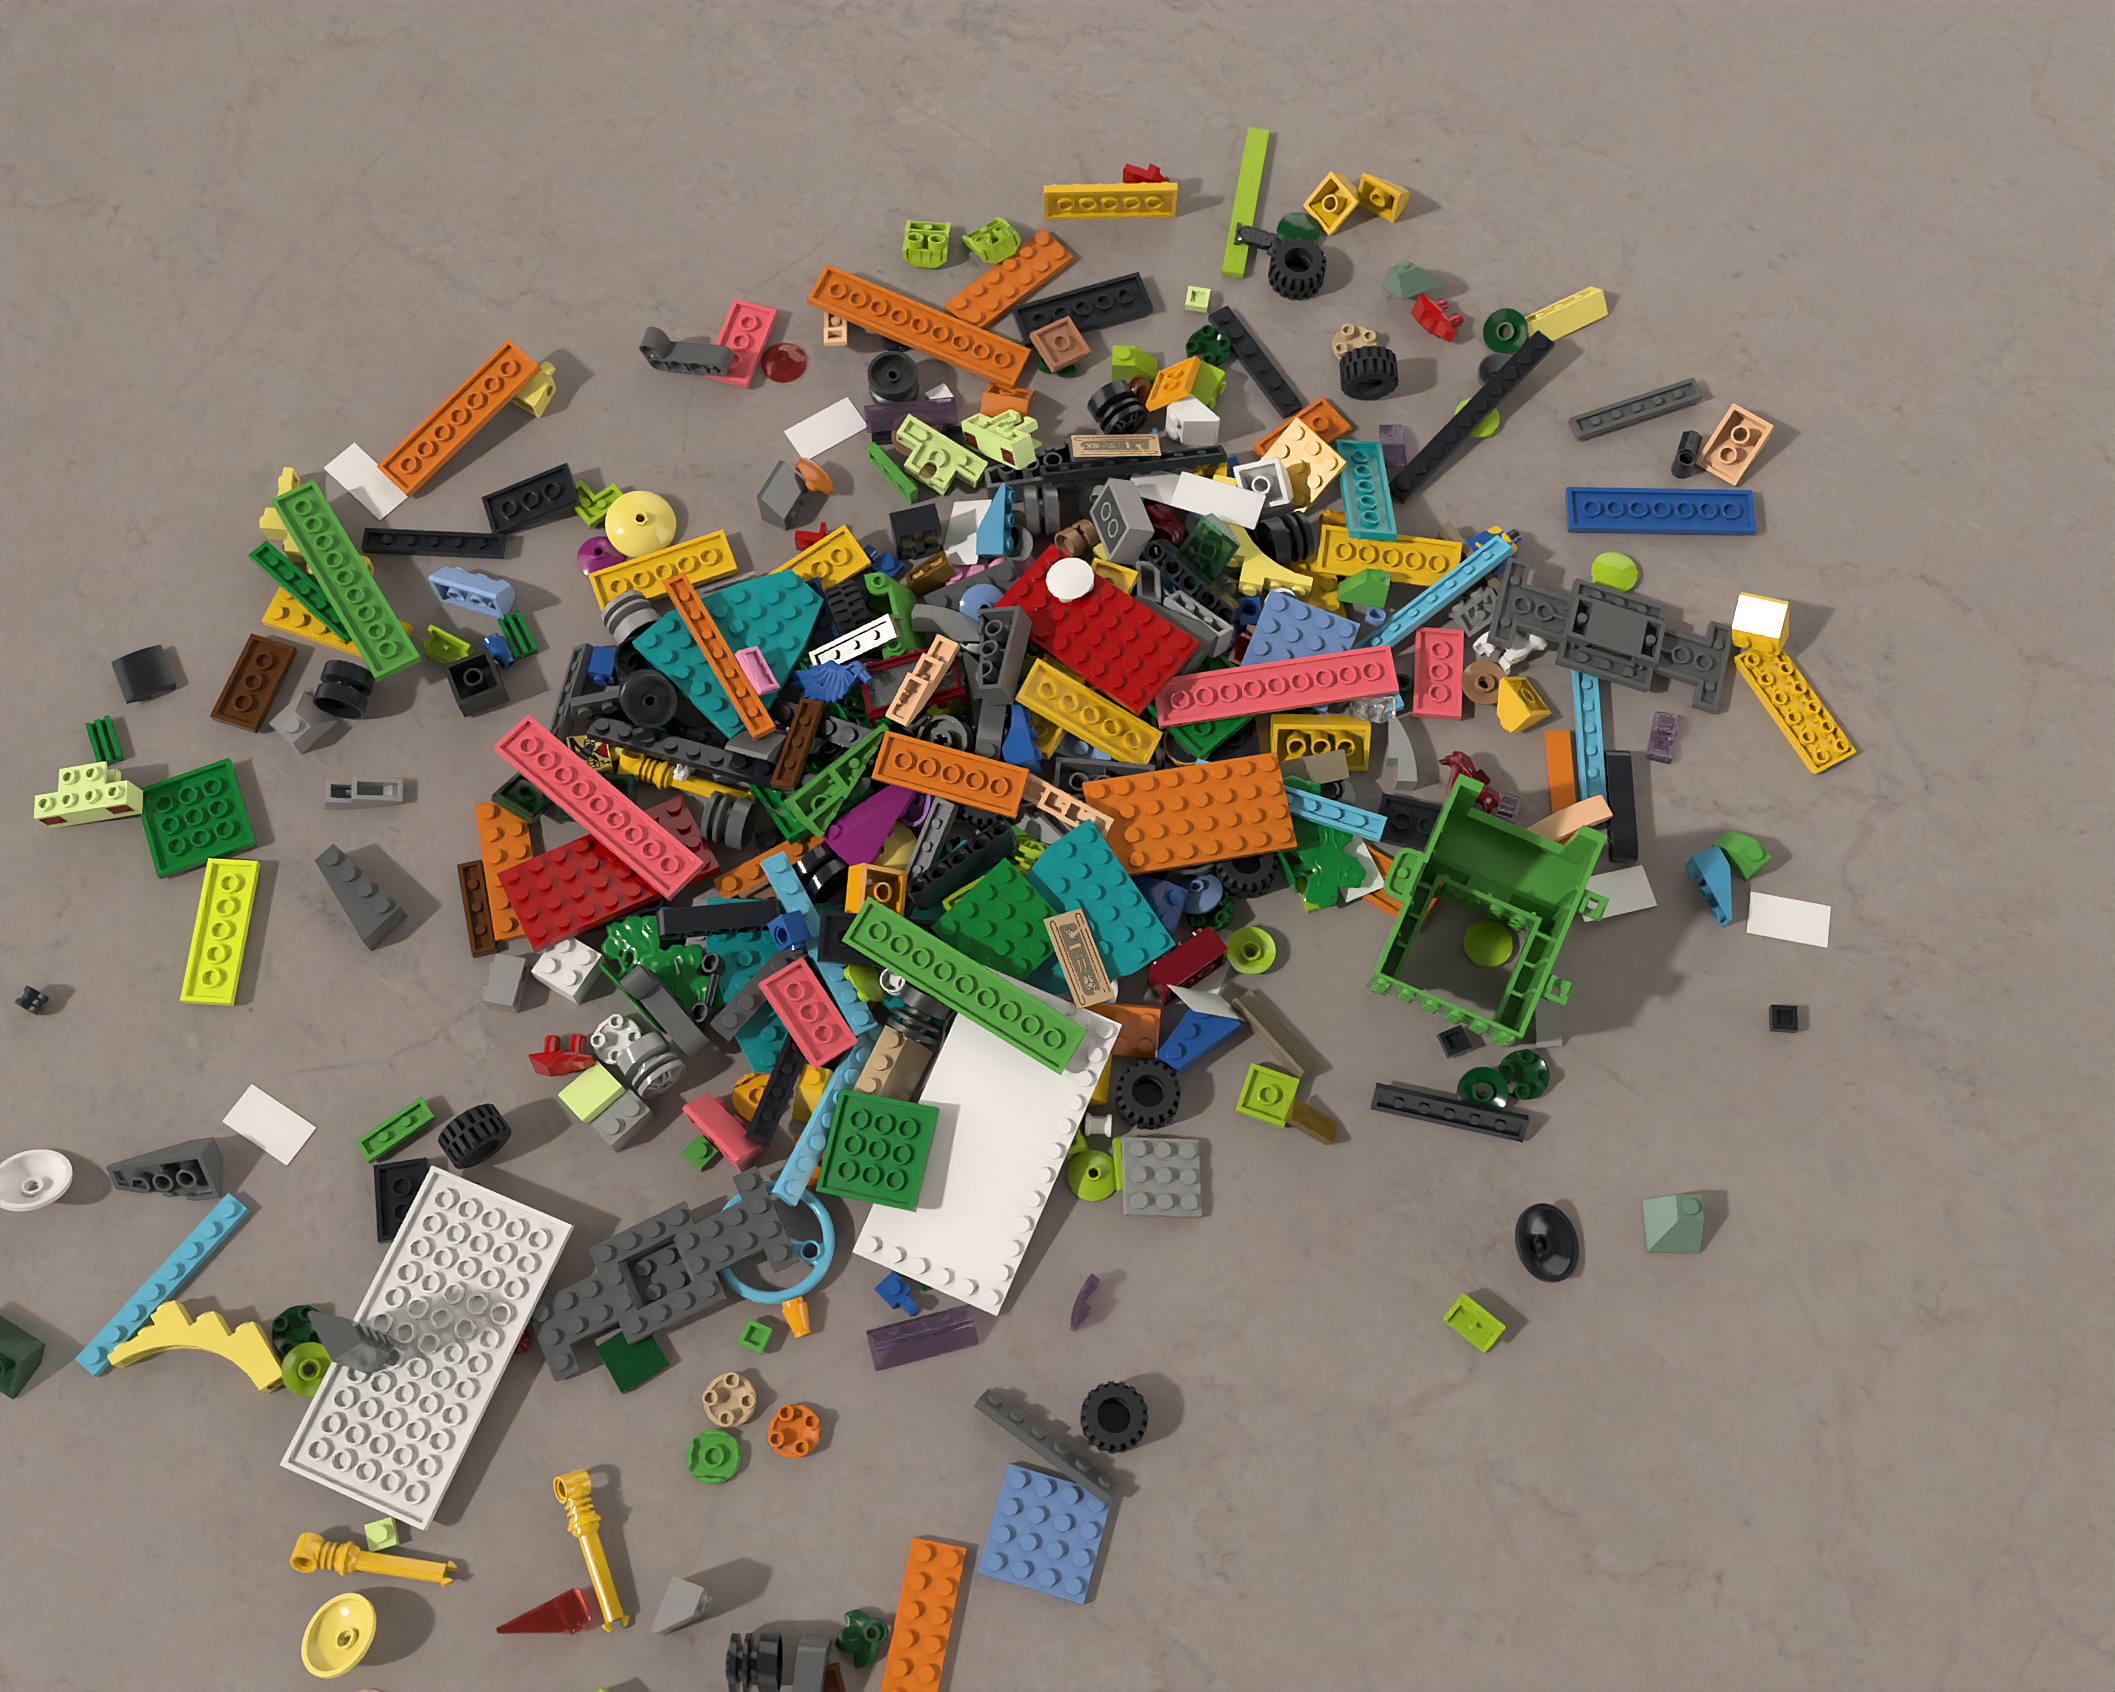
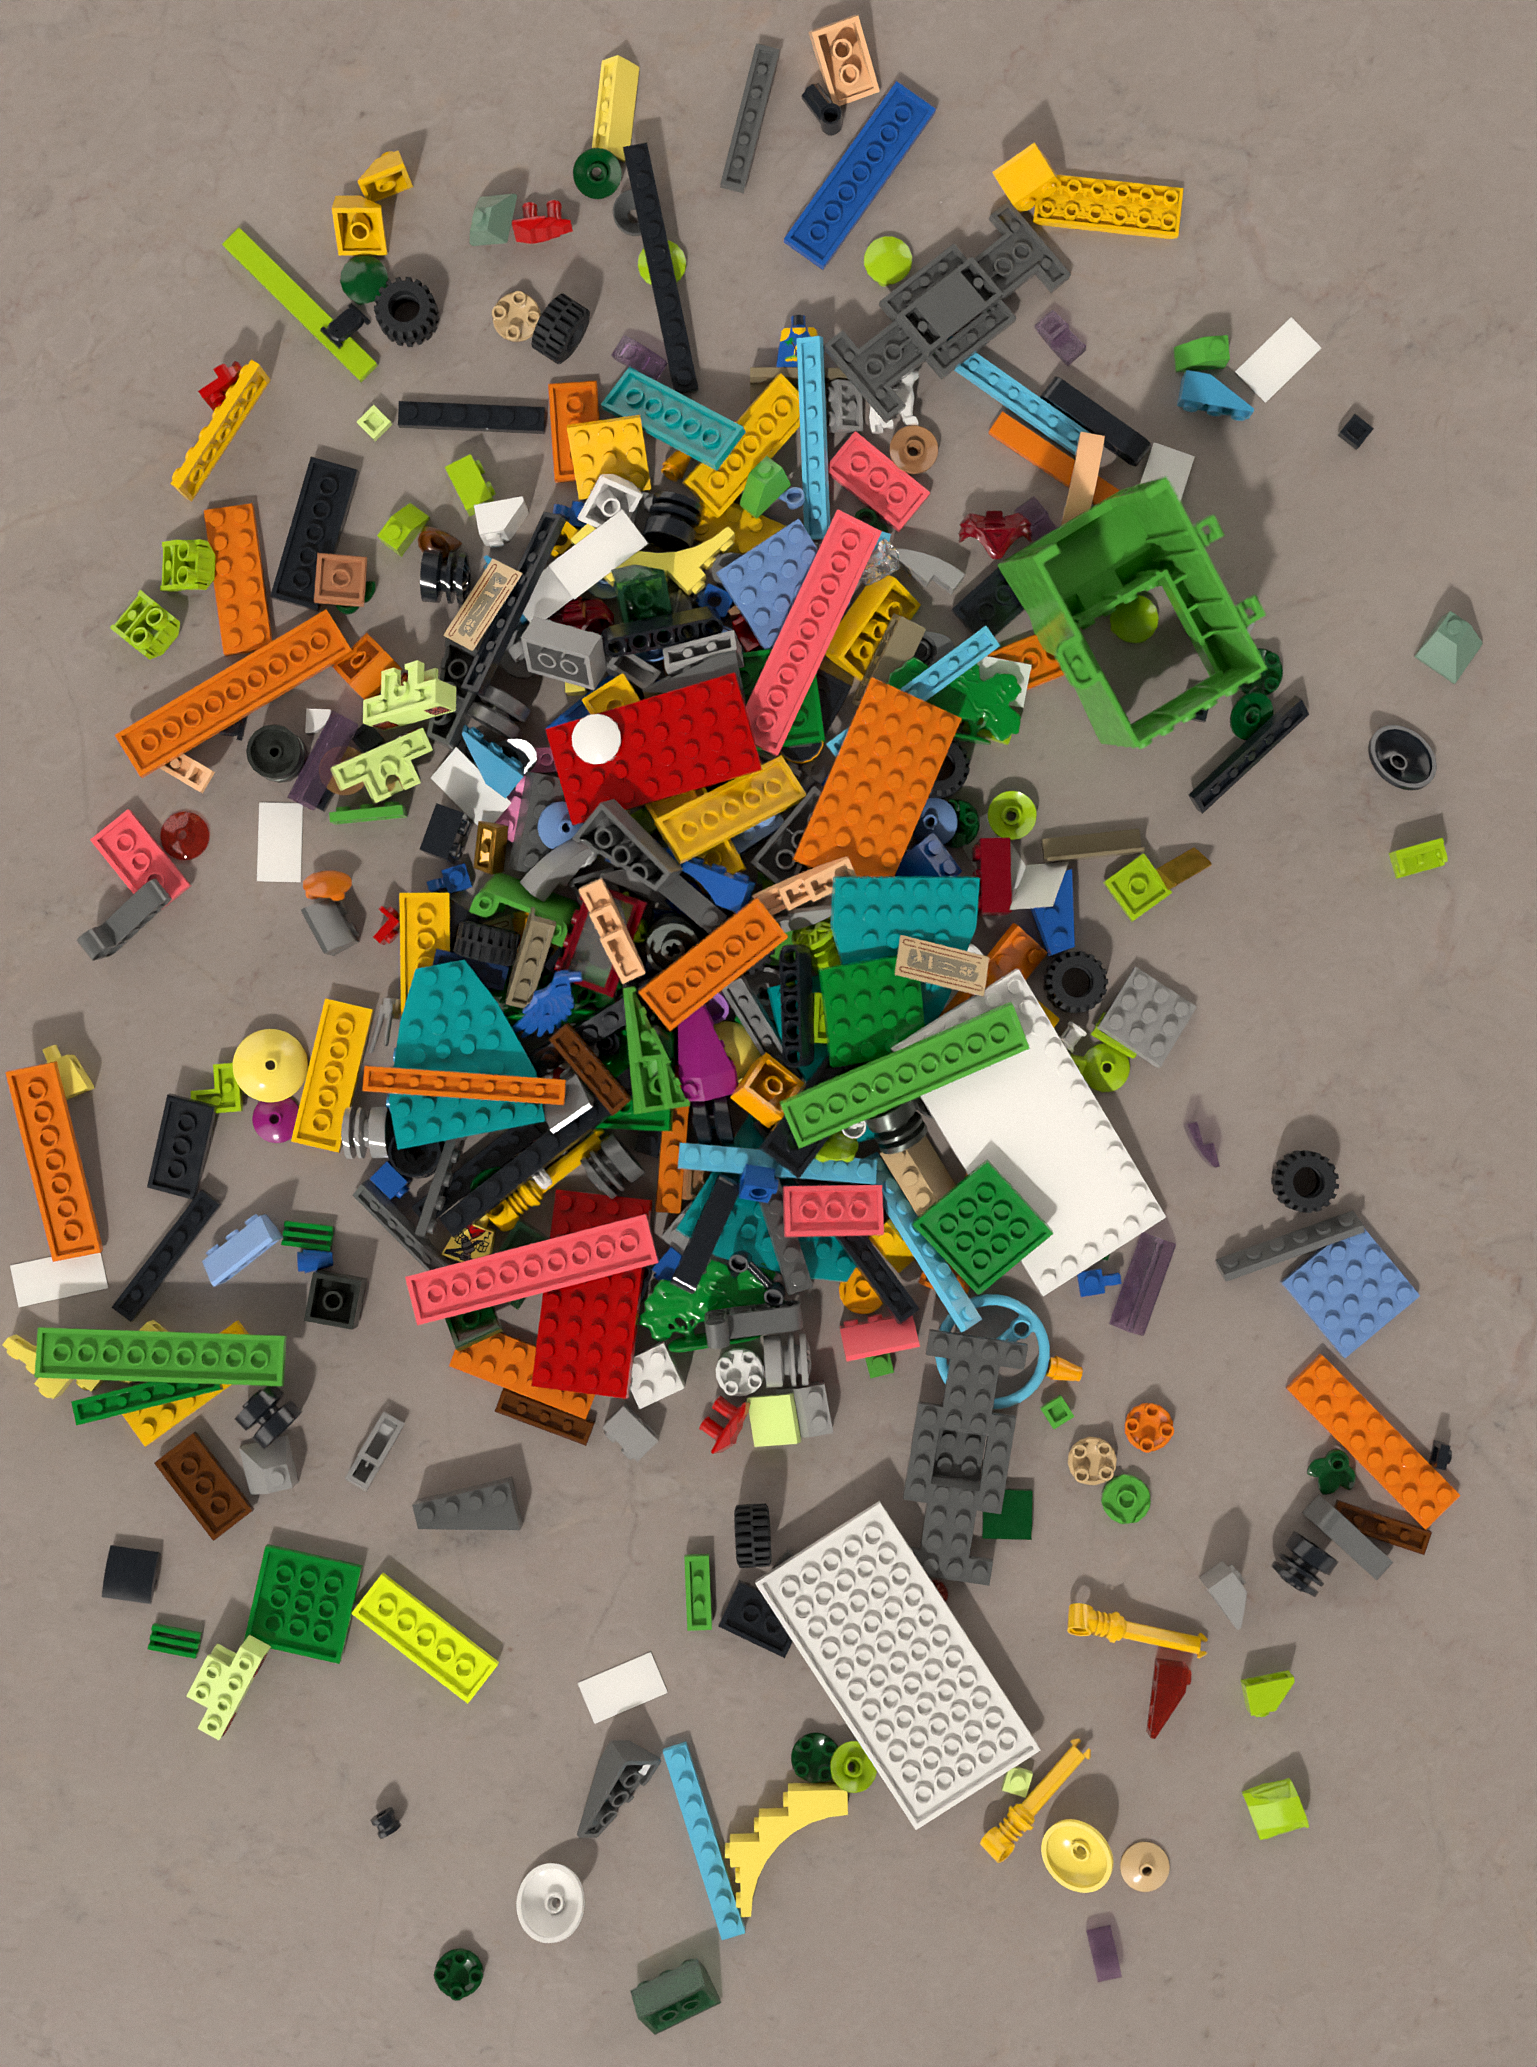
camera: 50 degrees left, 20 degrees up
(352, 1342) = (870, 1730): dark grey slope -> none
(444, 646) = (283, 1304): lime hinge -> none
(655, 710) = (460, 1168): pearl dark grey wheel -> none
(757, 670) = (502, 1062): bright pink plate -> none
(1077, 538) = (546, 699): medium nougat wheel -> none
(1173, 383) = (454, 509): light orange tile -> none
(1209, 345) = (430, 449): dark green dish -> none
(1519, 704) = (953, 434): yellow slope -> none

